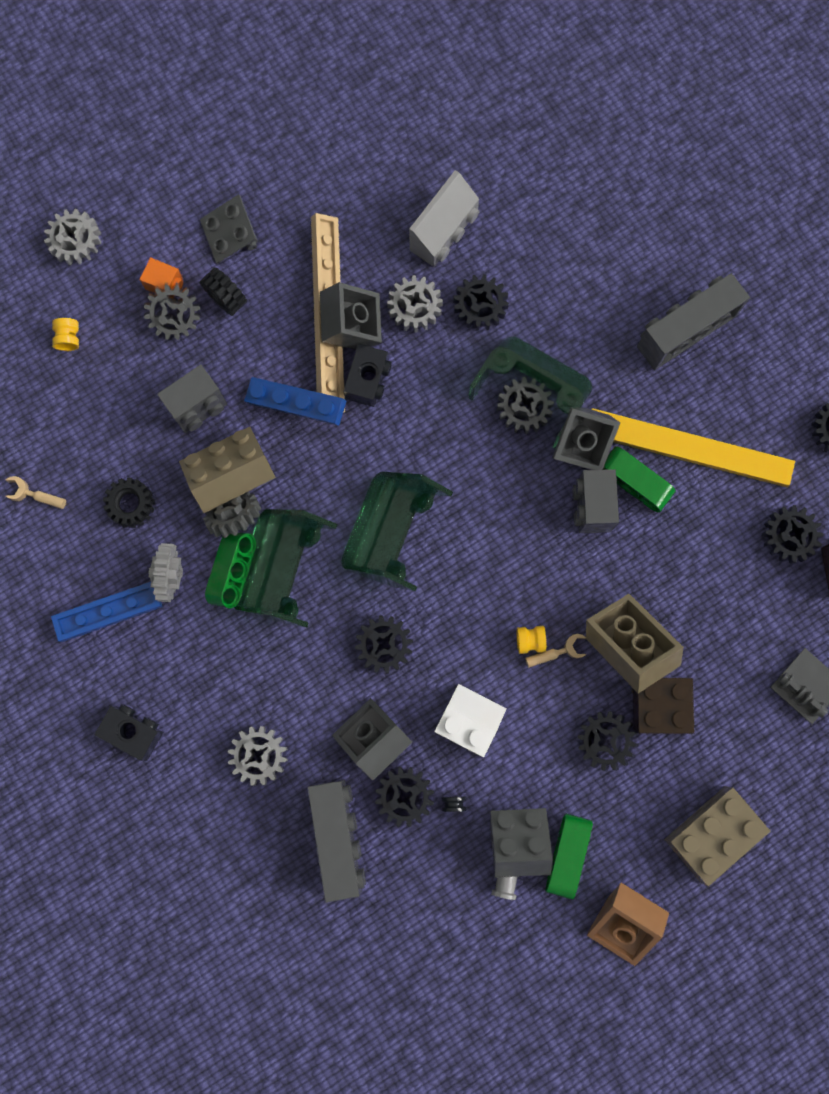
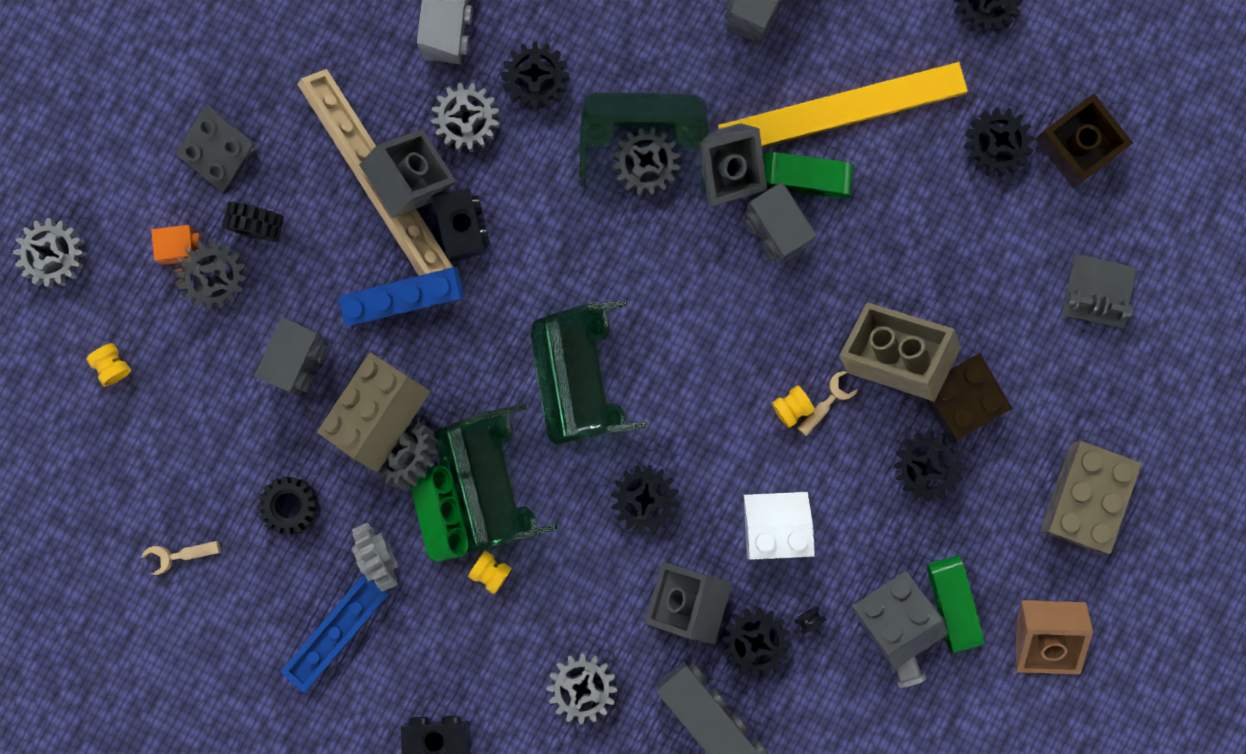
camera: 30 degrees left, 5 degrees up
(241, 632) = (489, 572): none -> yellow wheel

